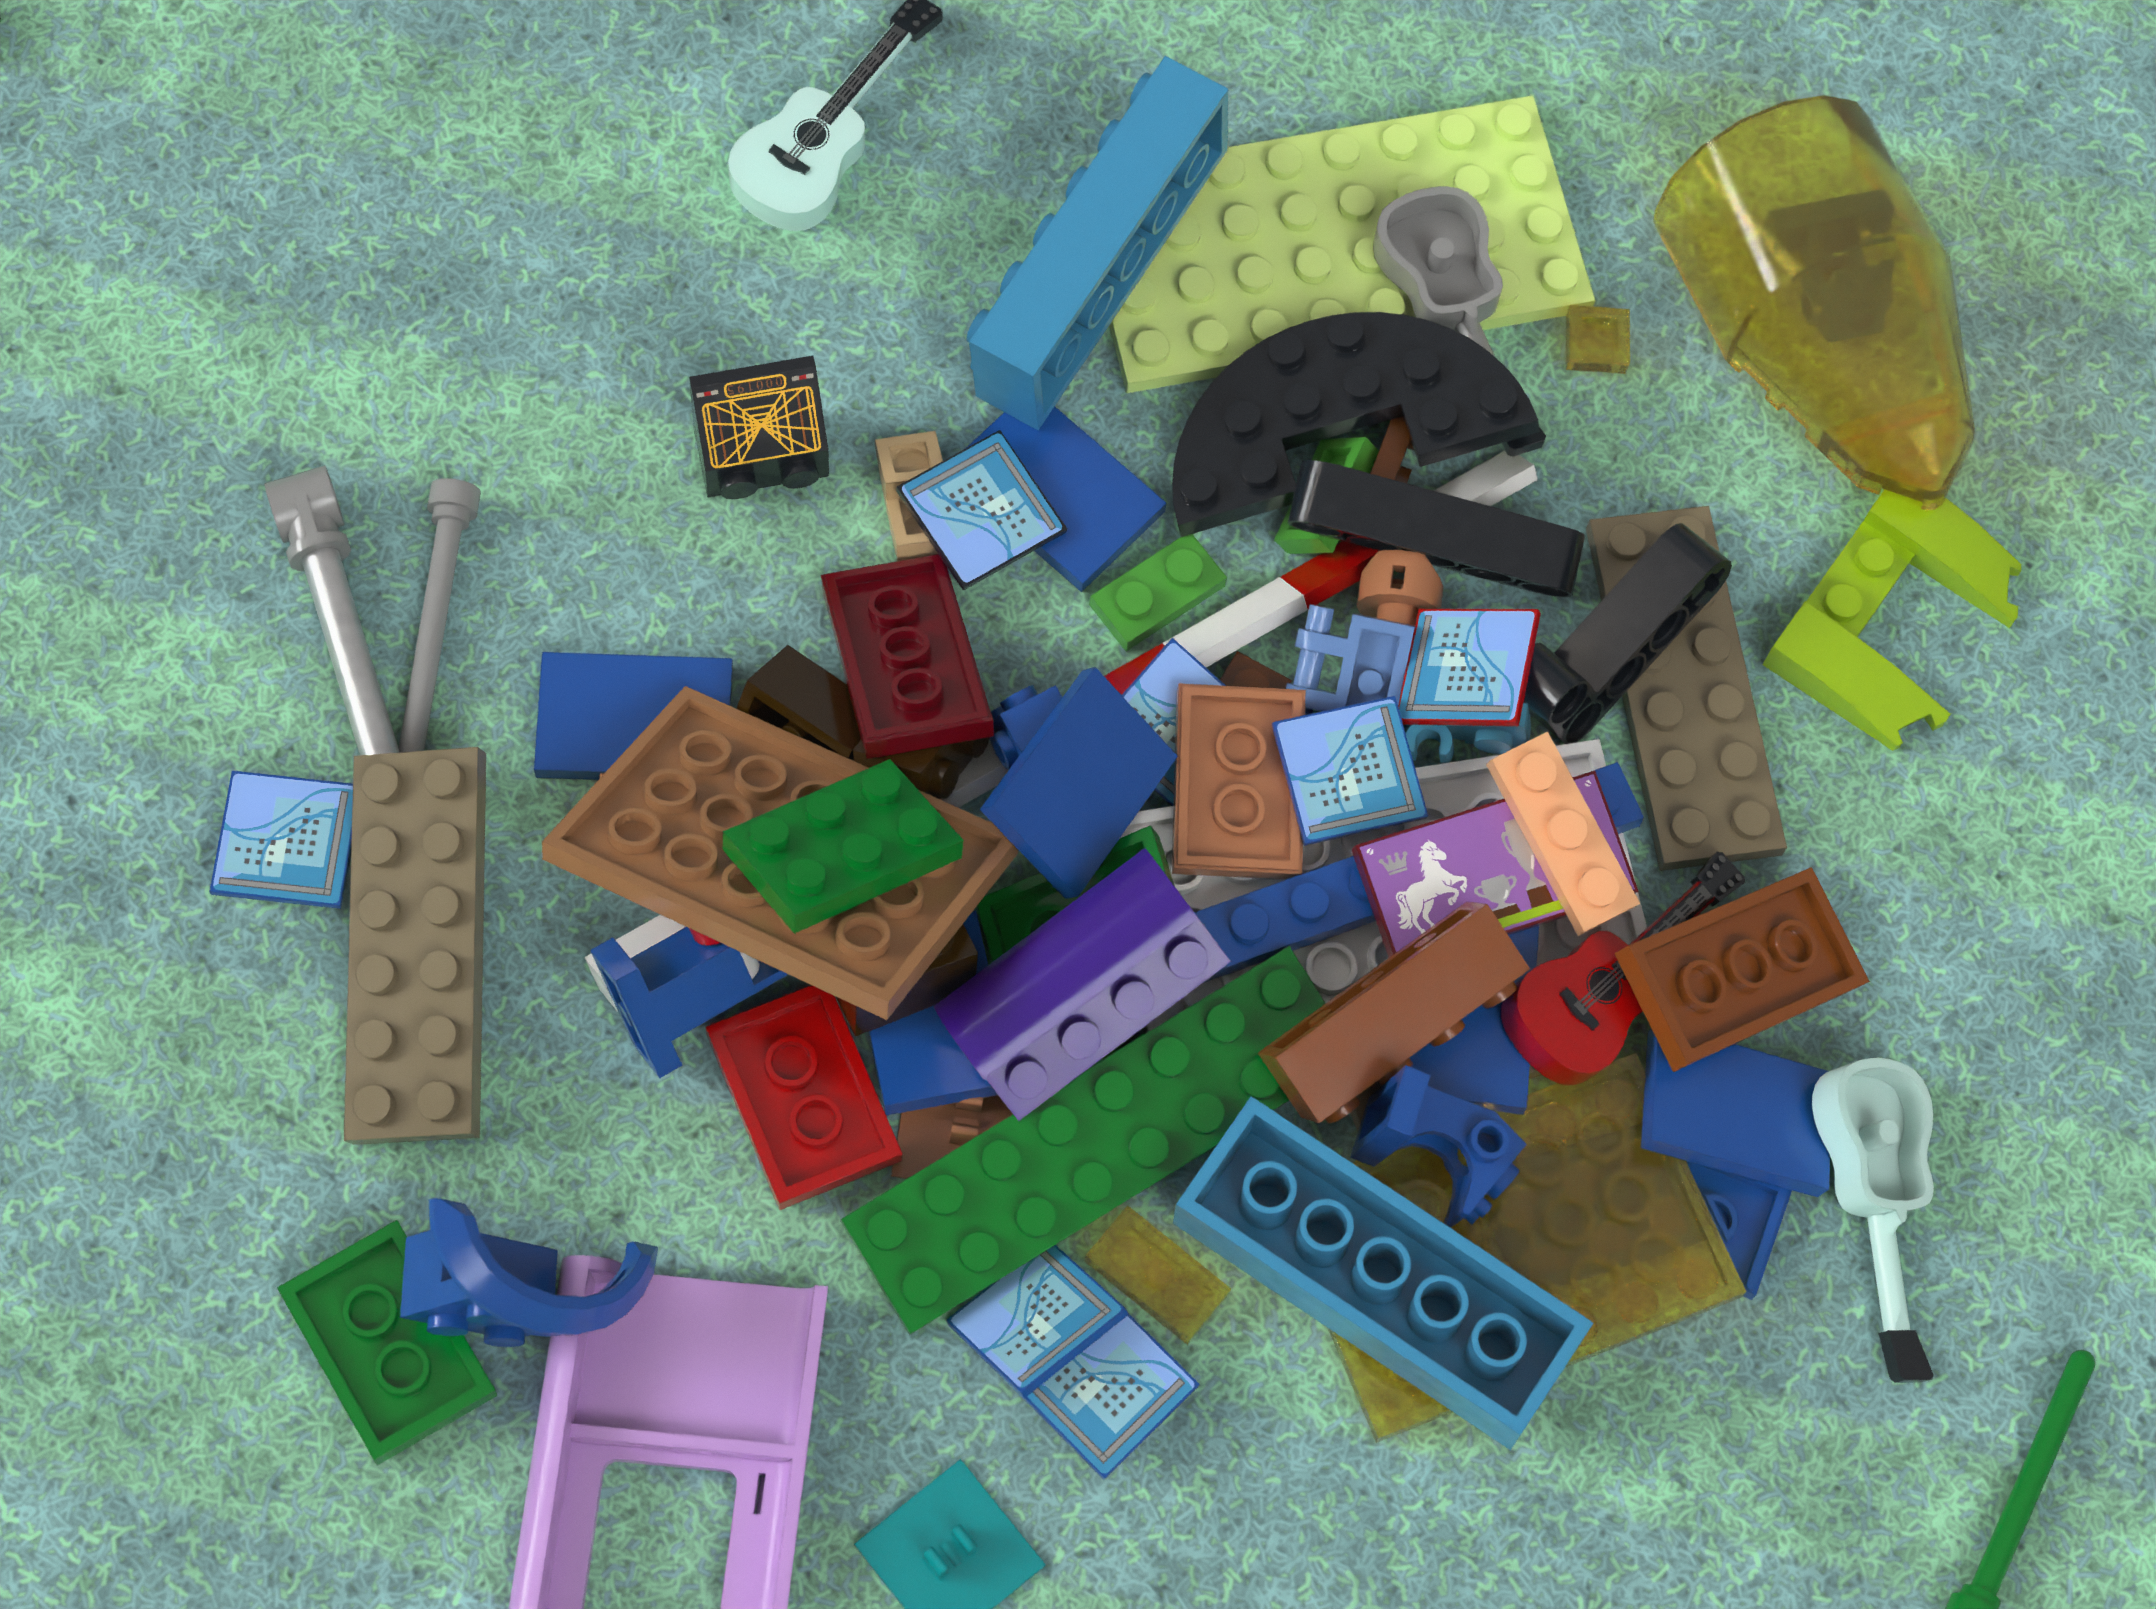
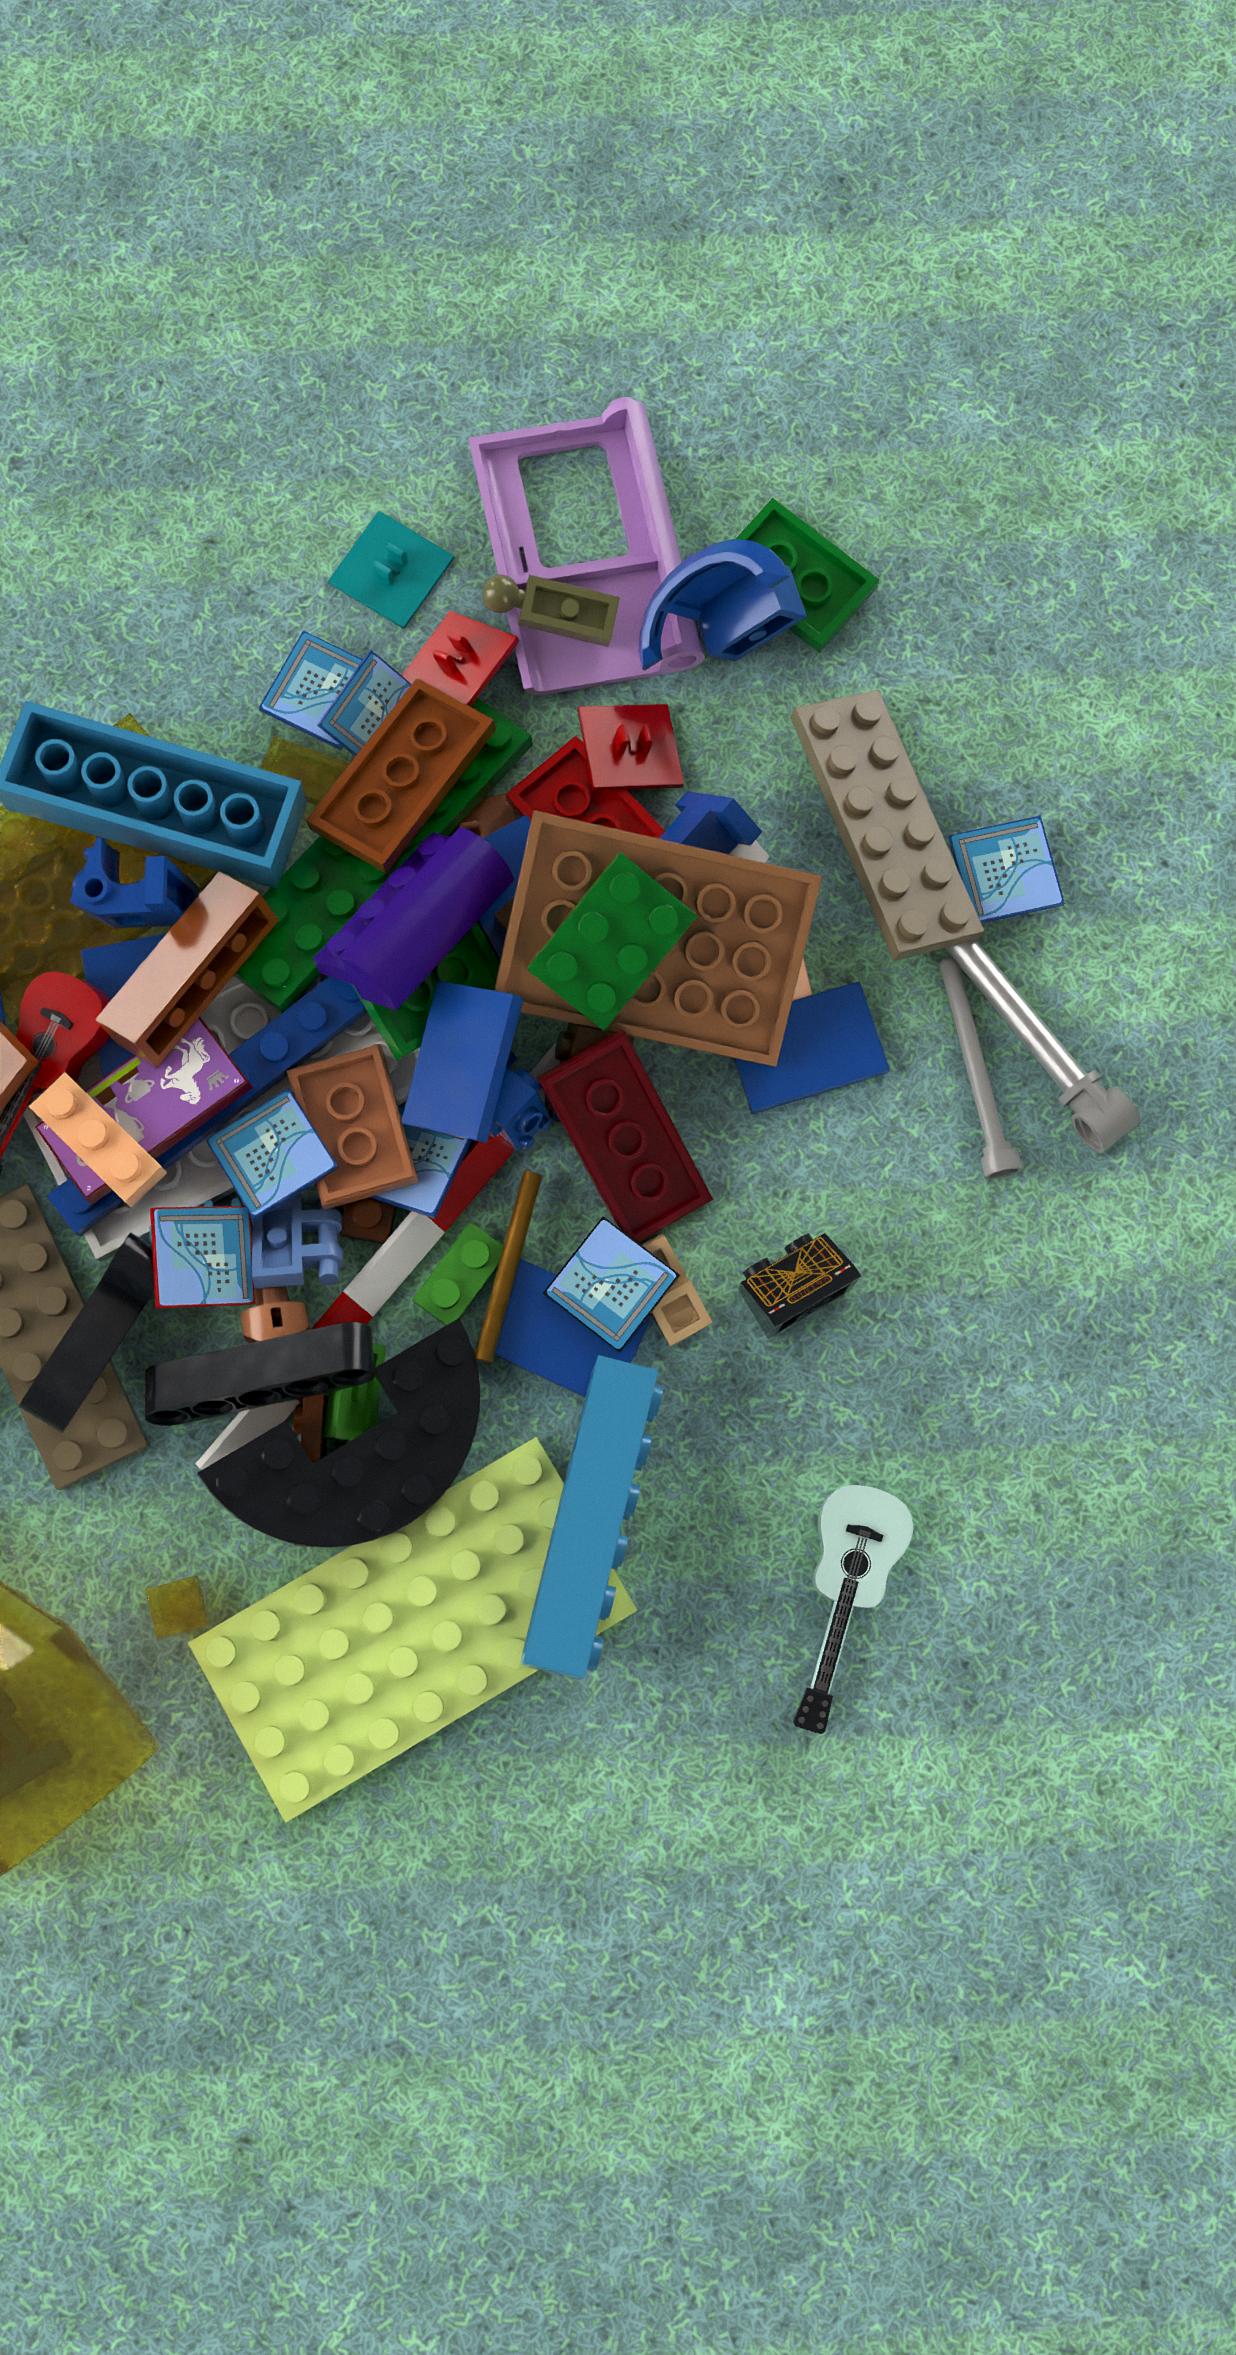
camera: 170 degrees right, 10 degrees up
(711, 1169) = (630, 747): none -> red piece
(744, 1379) = (555, 607): none -> olive plate
(803, 701) = (685, 1077): dark brown brick -> none
(902, 1367) = (461, 657): none -> piece
(1035, 1197) = (401, 775): none -> dark orange plate
(1098, 571) = (507, 1267): none -> pearl gold bar
(1439, 256) = (320, 1623): light grey piece -> none

